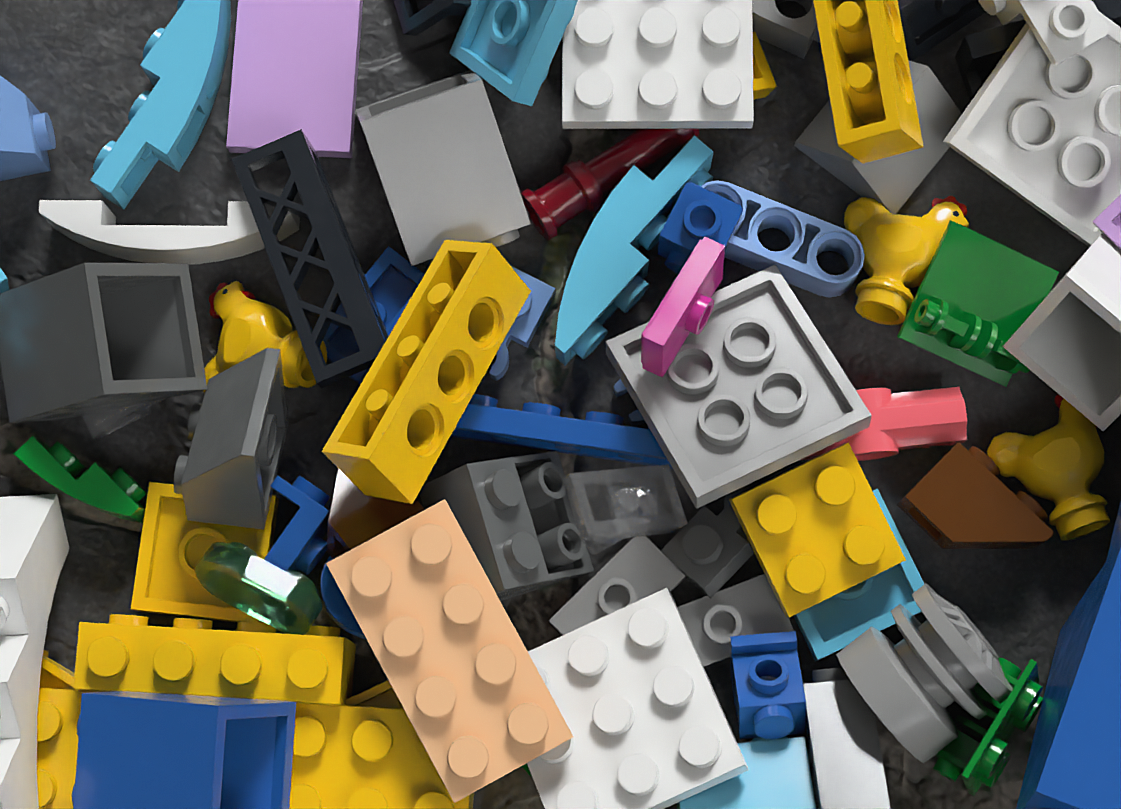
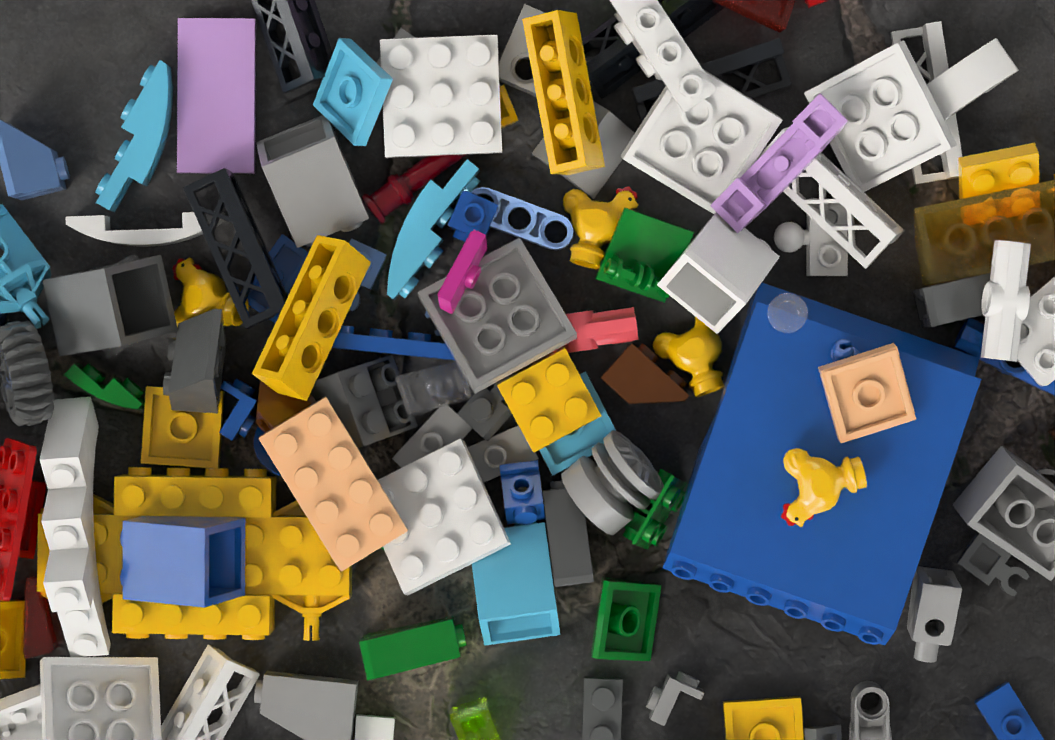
camera: 10 degrees left, 10 degrees up
(259, 588) = (228, 454): clear green plate -> none

